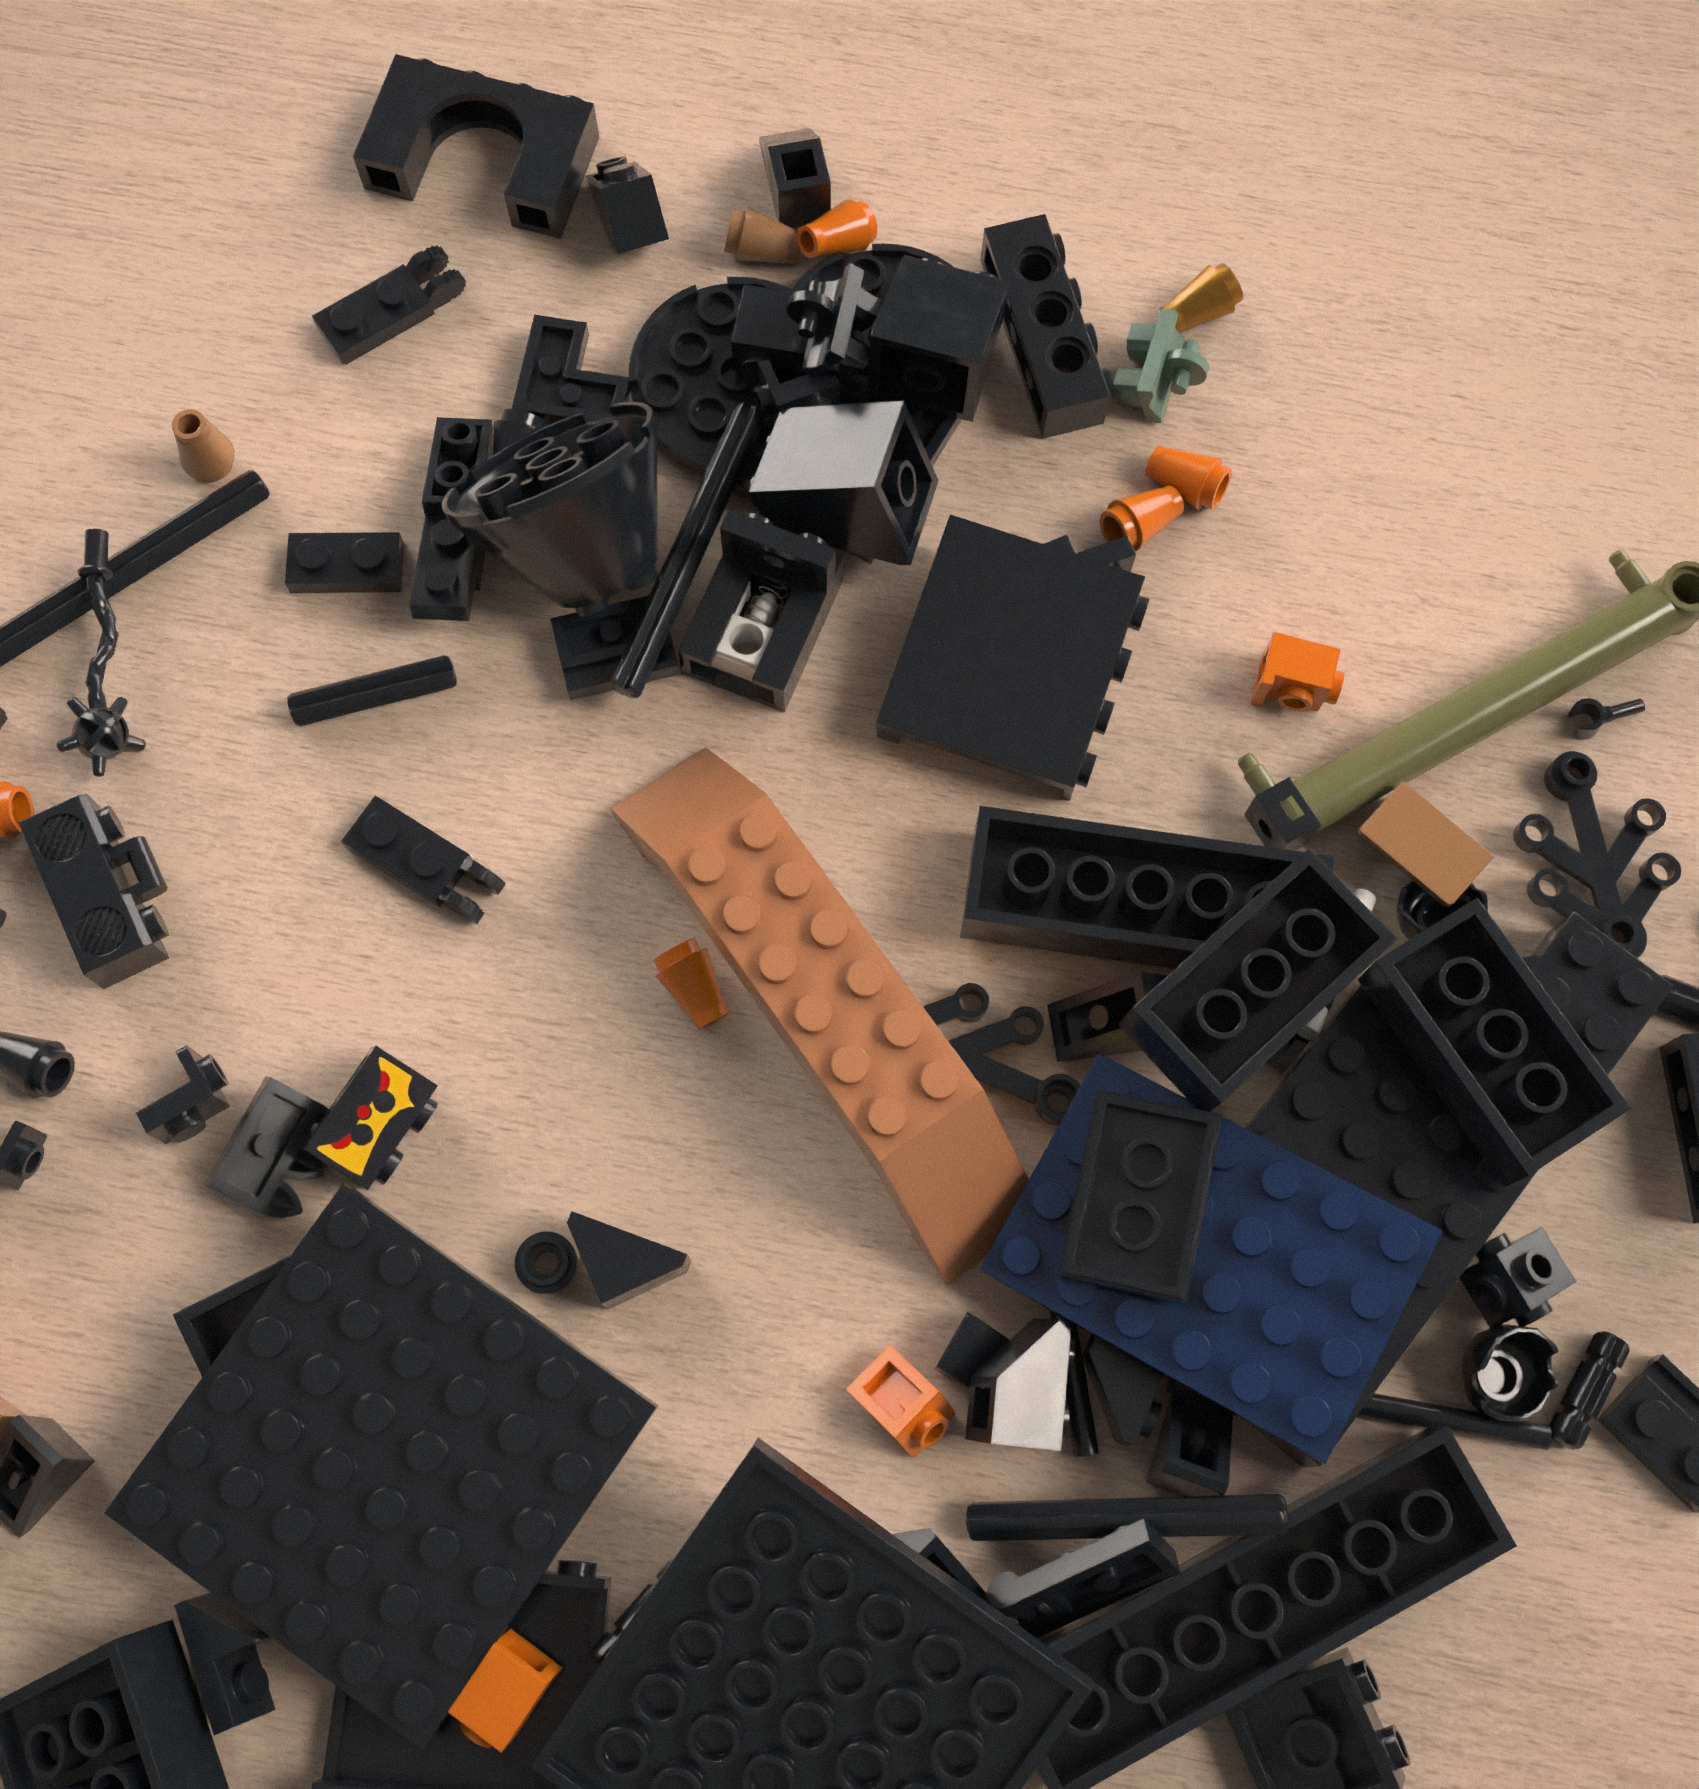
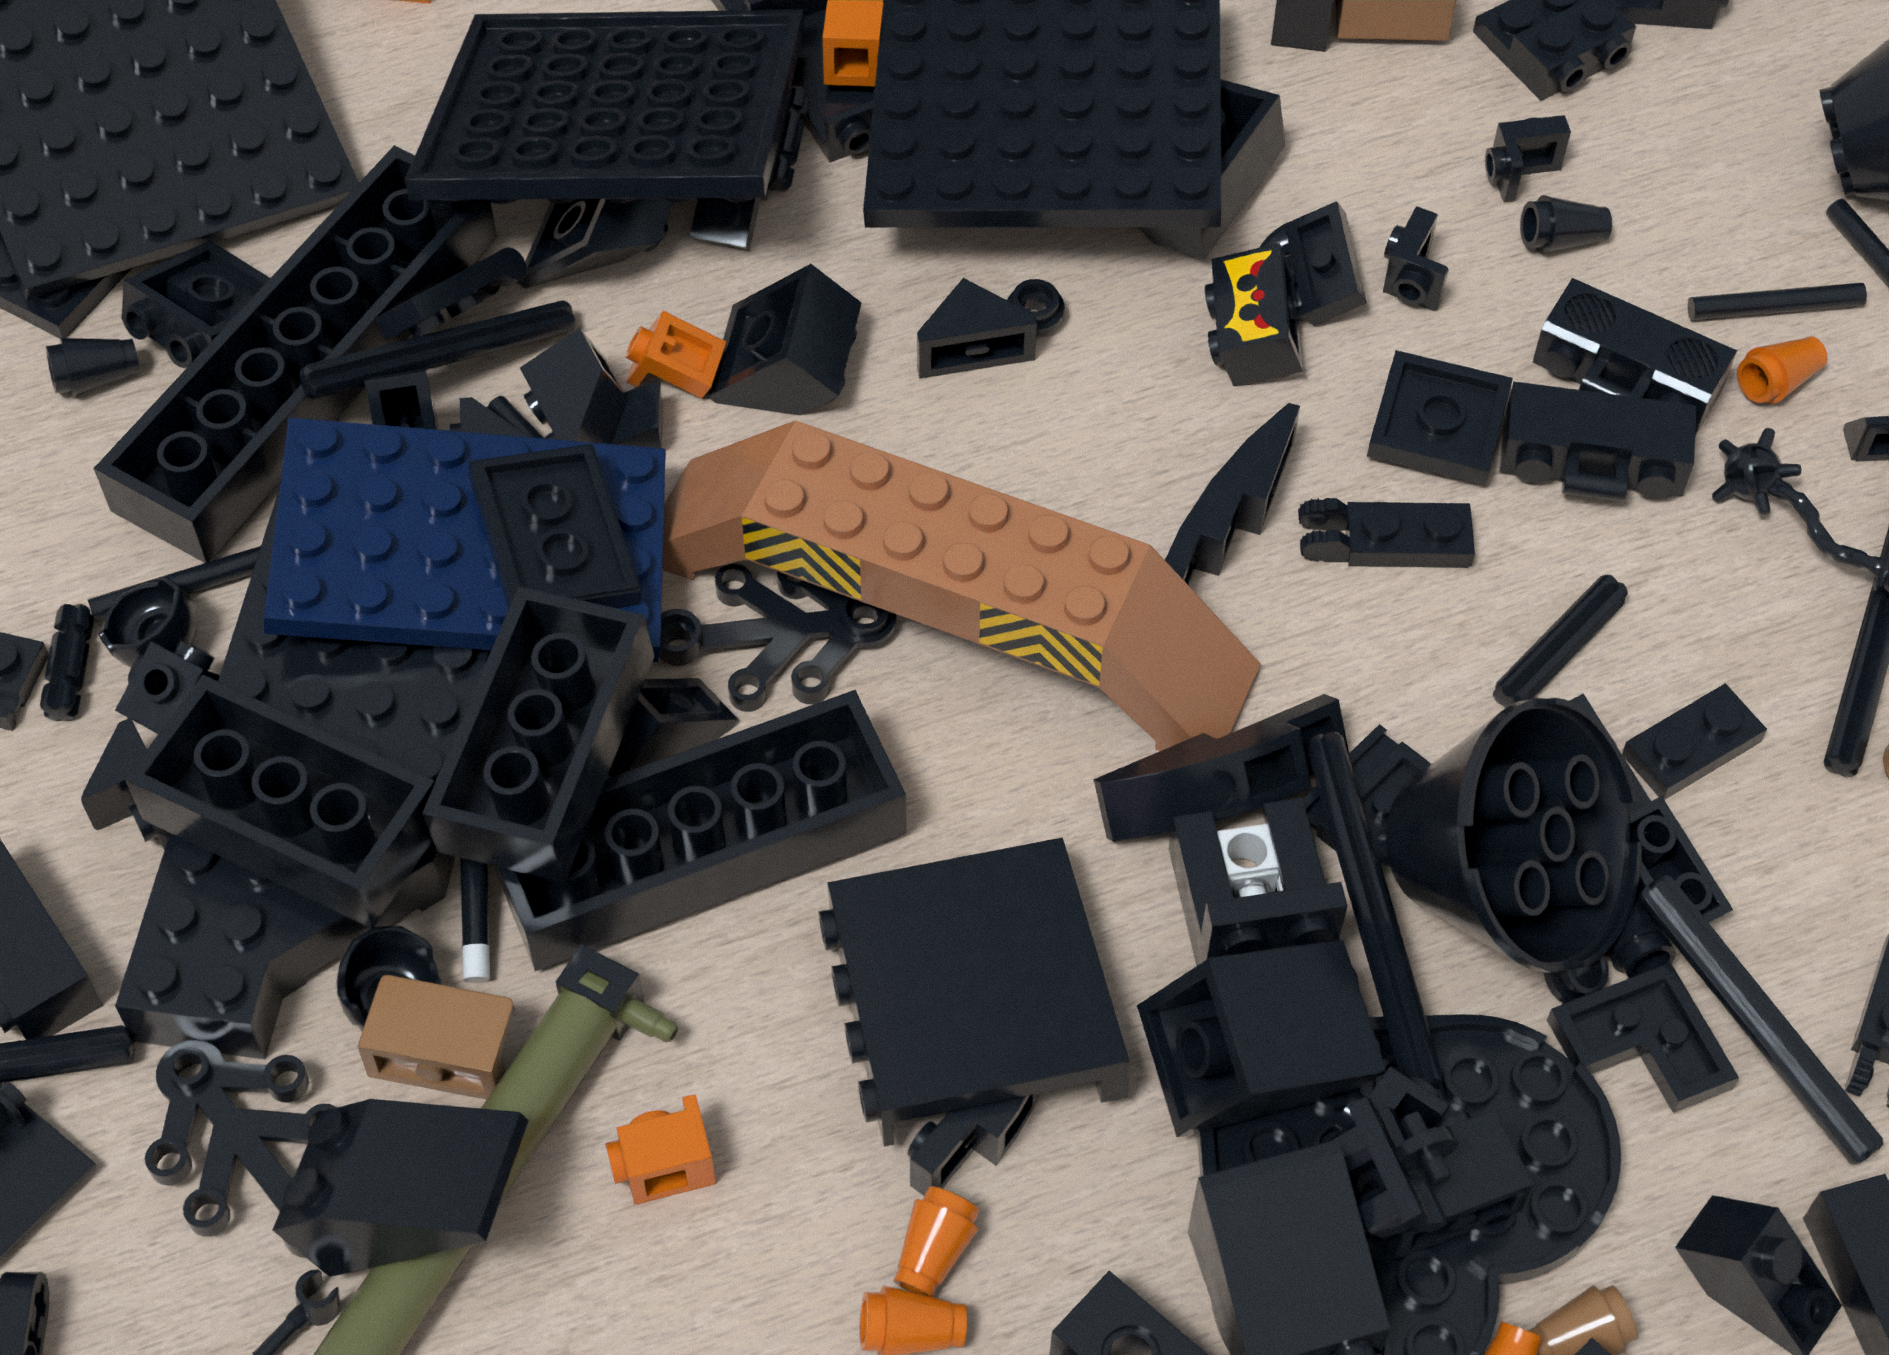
camera: 150 degrees right, 15 degrees down
(175, 816) = (1598, 441): none -> black piece
(296, 934) = (1440, 417): none -> black plate
(488, 341) = (1761, 1020): none -> black axle
(513, 957) = (1235, 497): none -> black slope
(733, 714) = (1218, 774): none -> black slope
(796, 1346) = (787, 345): none -> black slope
(1455, 1738) = (90, 363): none -> black cone
(1512, 718) = (397, 1182): none -> black slope
(1568, 1216) = (107, 793): none -> black slope

